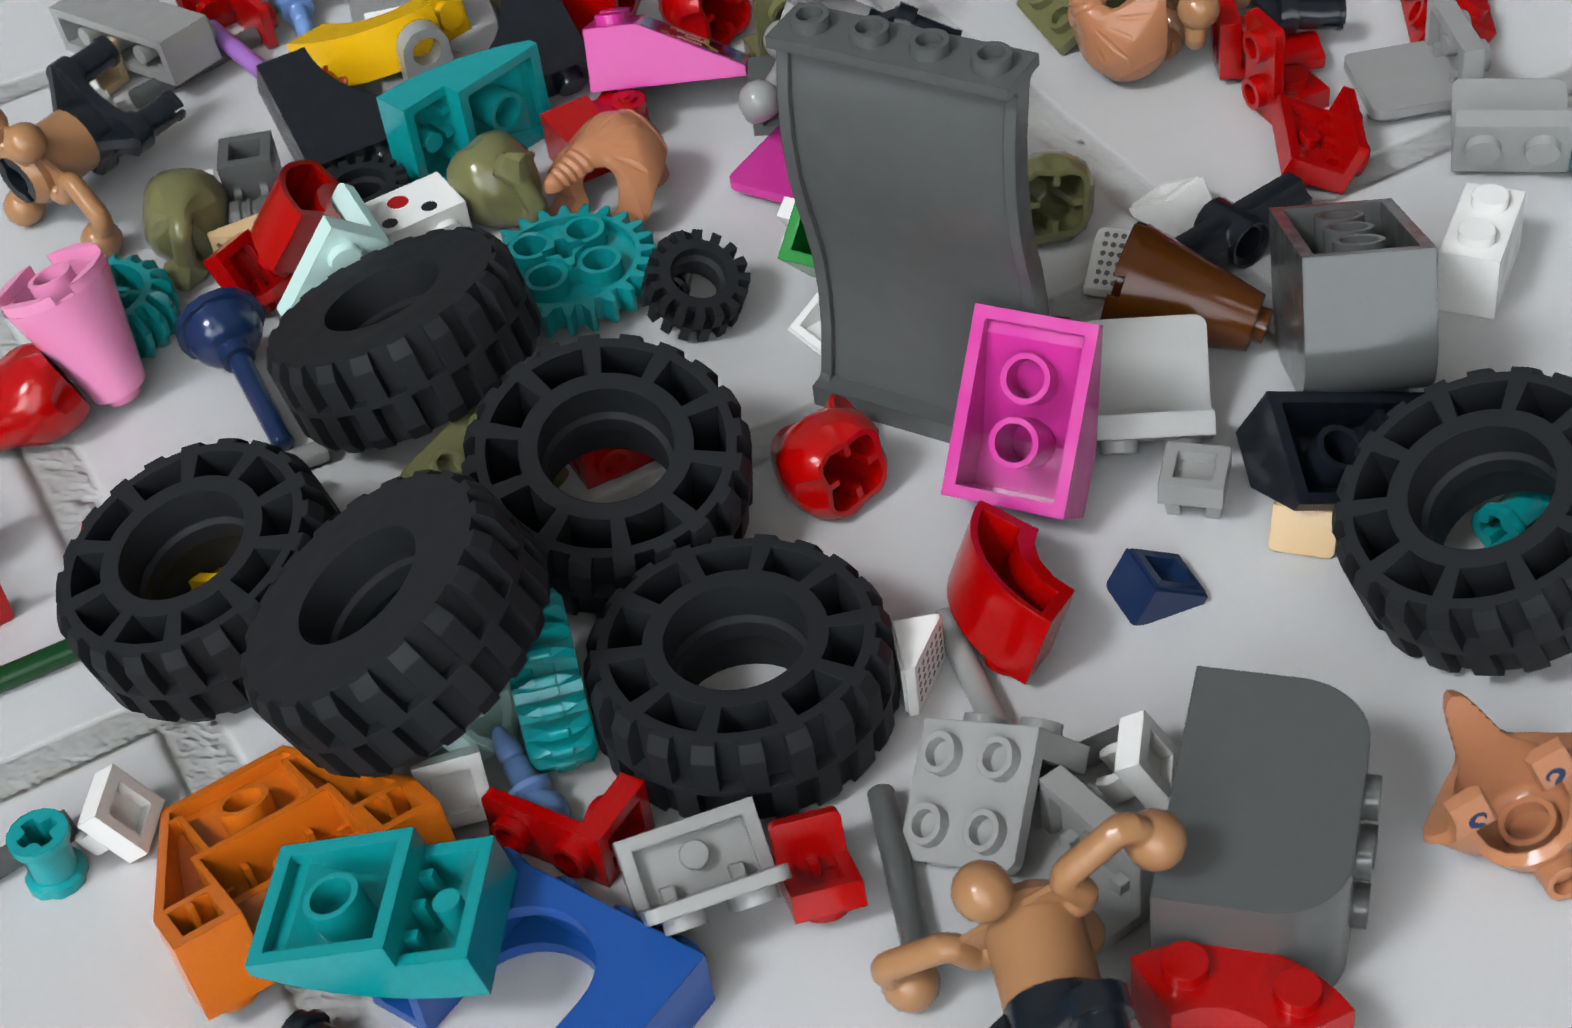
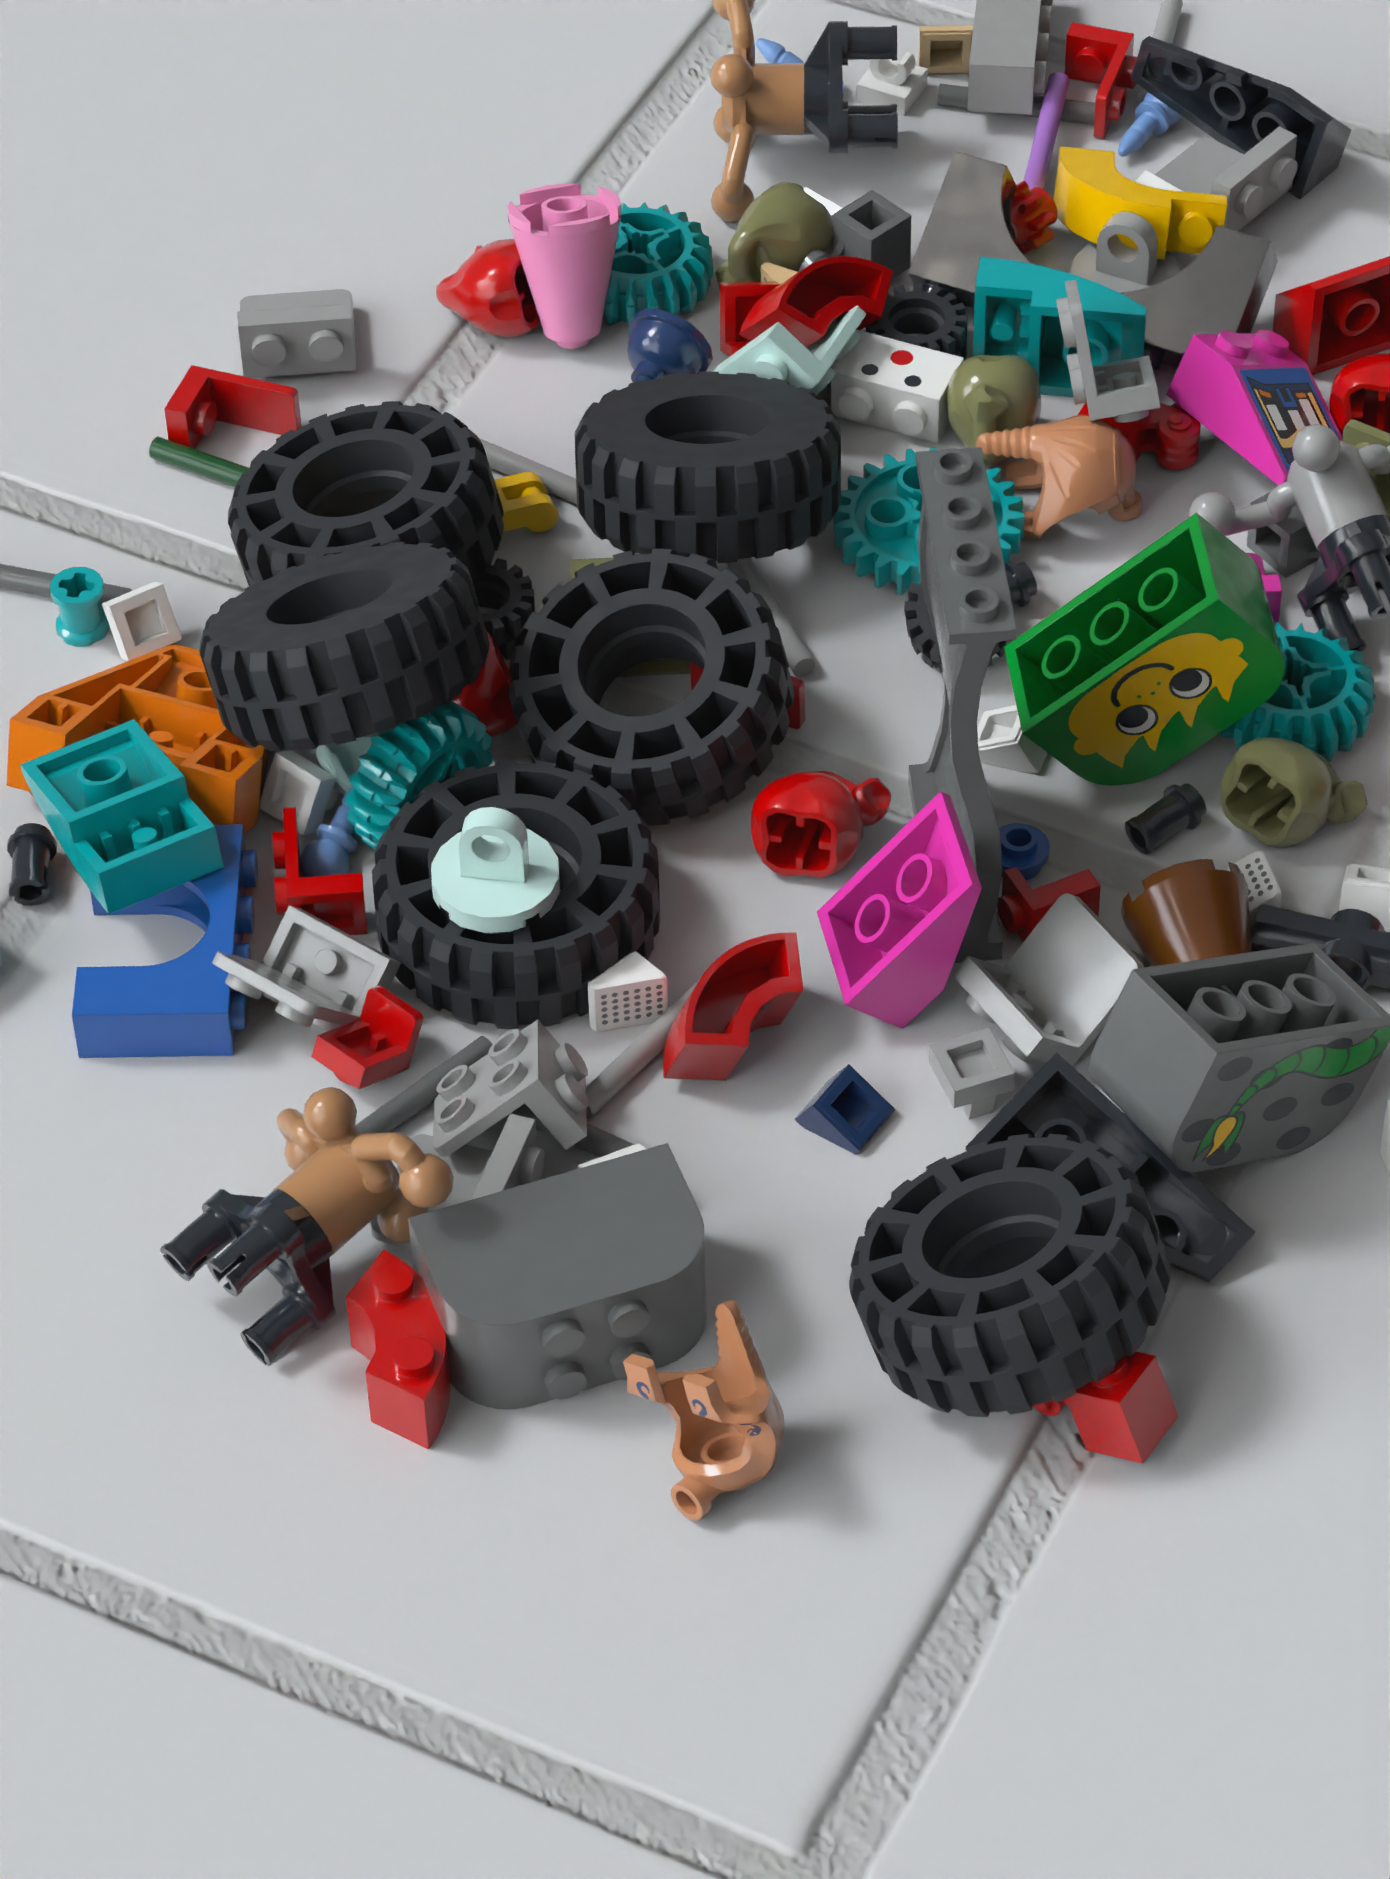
camera: 50 degrees right, 5 degrees up
(550, 78) = (1111, 389): none -> light grey bracket
(761, 647) = (495, 873): none -> light aqua tile

